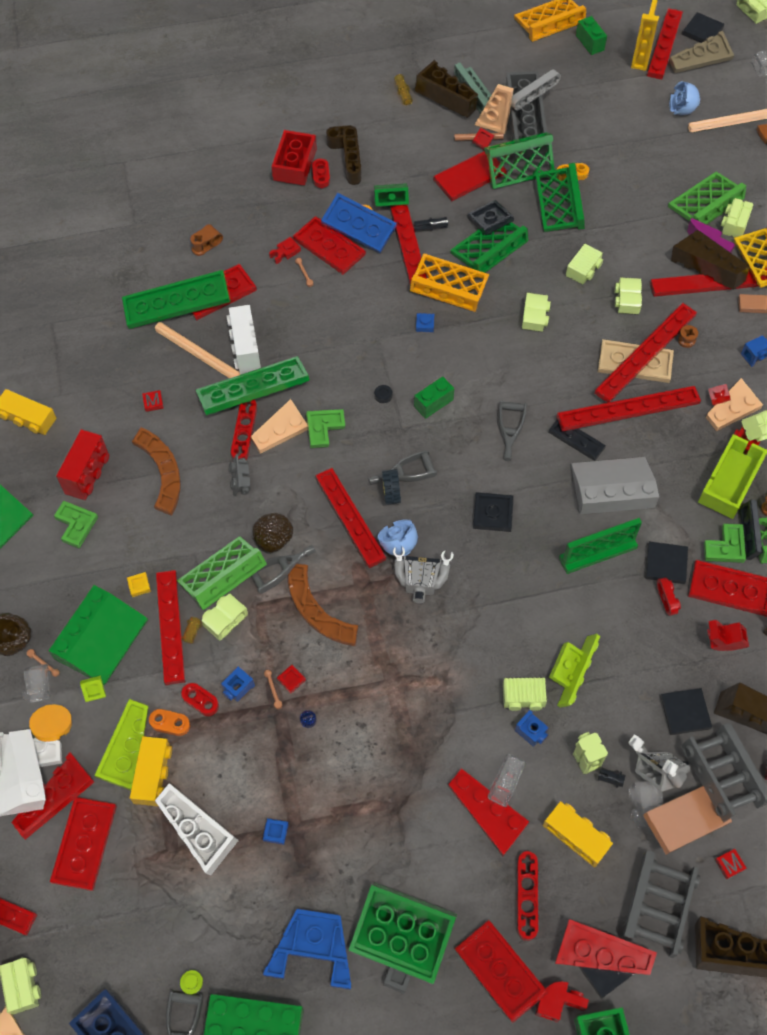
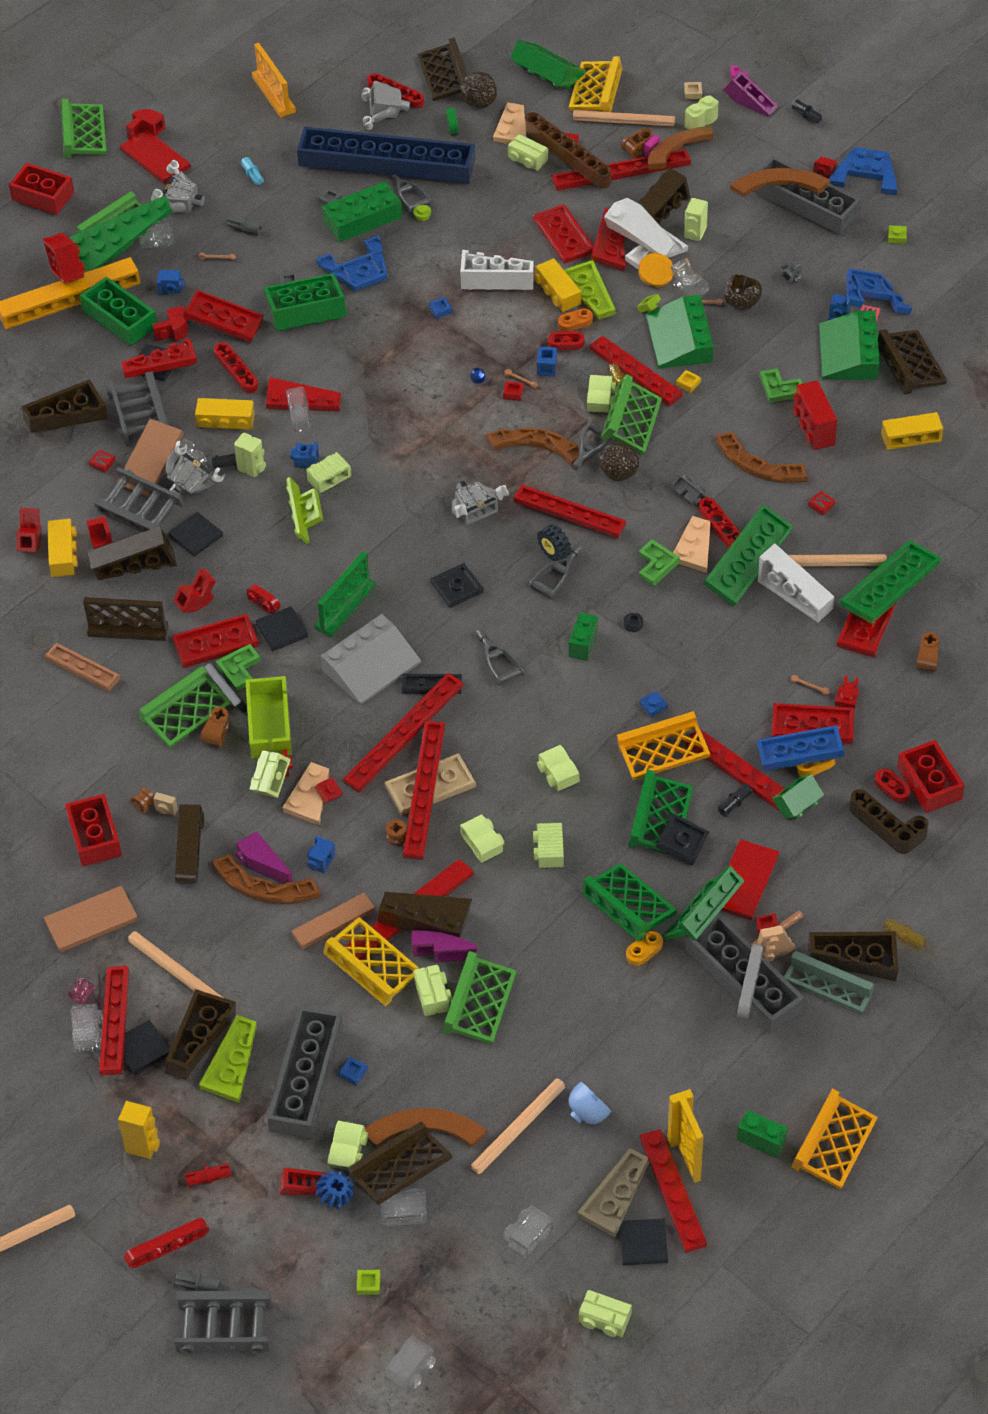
camera: 145 degrees right, 10 degrees down
(400, 535) = (514, 509): light blue cylinder -> none

